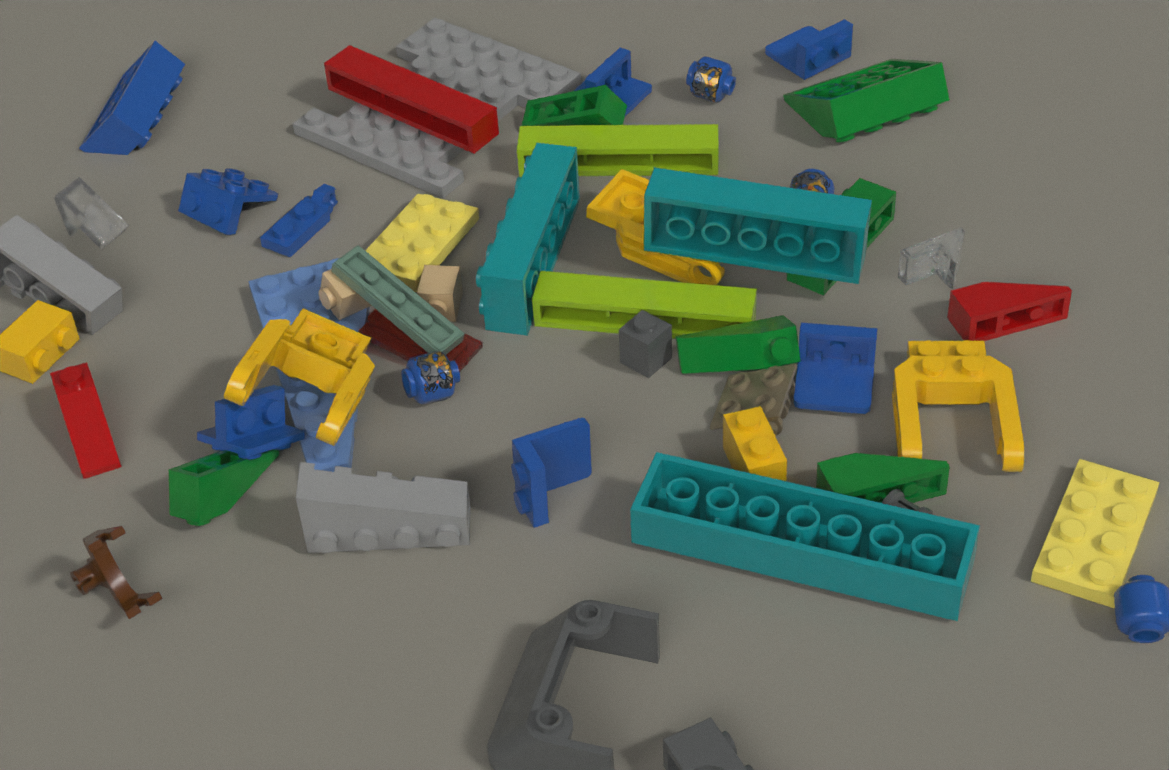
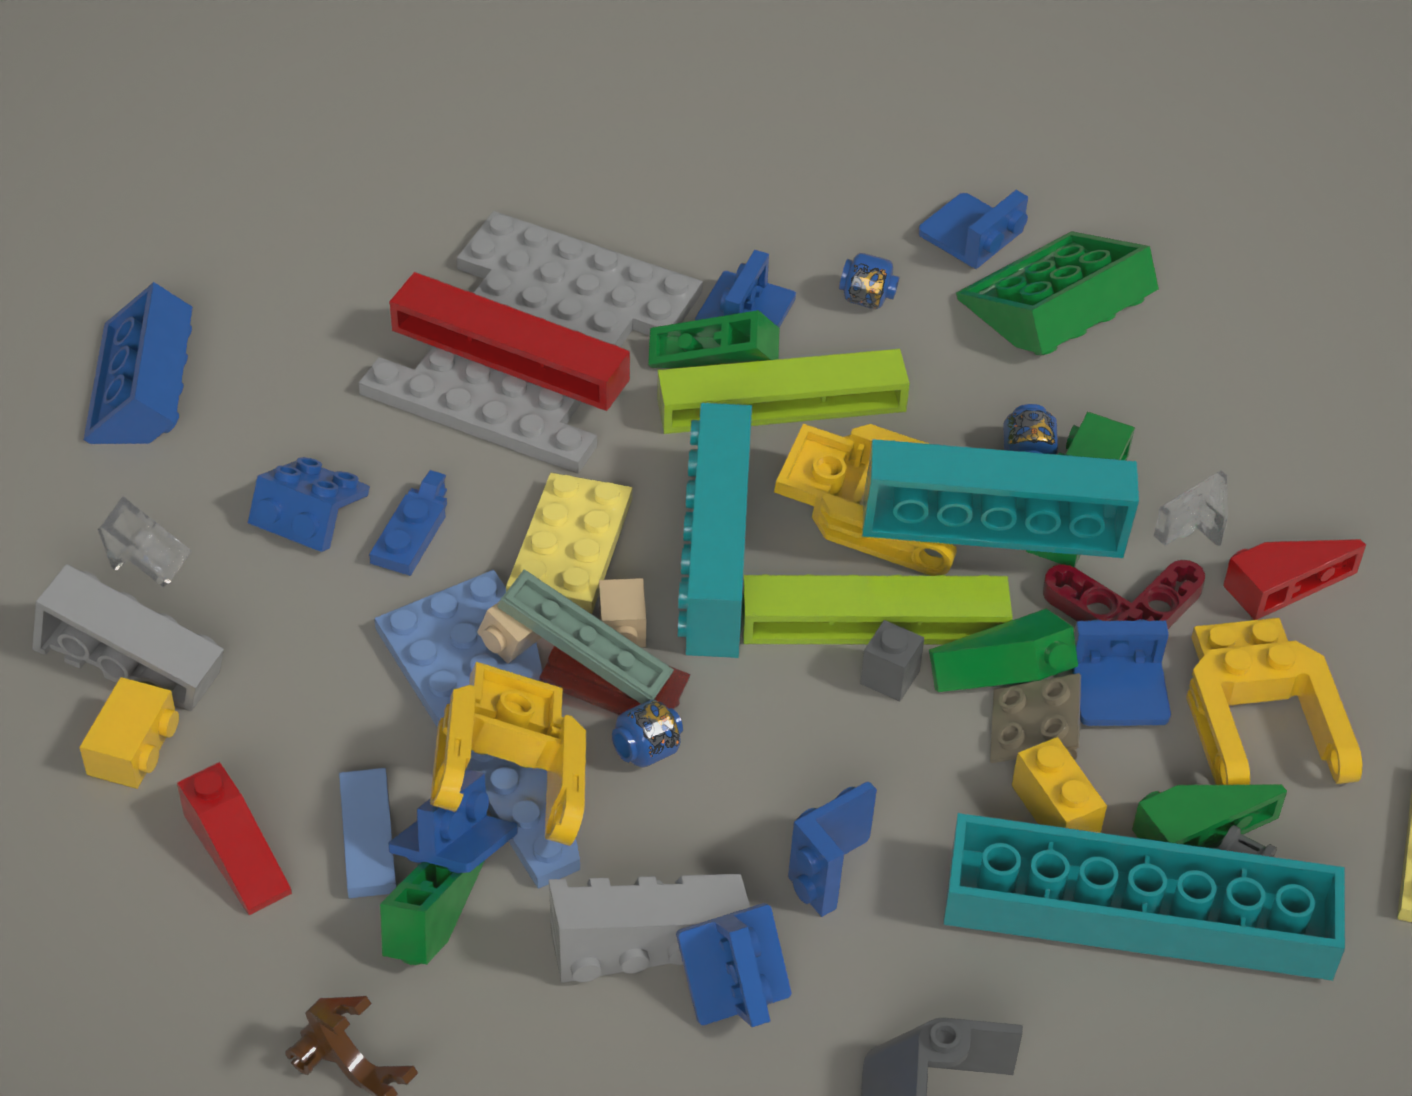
camera: 15 degrees left, 5 degrees up
(193, 414) = (367, 833): none -> medium blue tile
(442, 548) = (734, 966): none -> blue bracket
(905, 313) = (1090, 591): none -> dark red beam

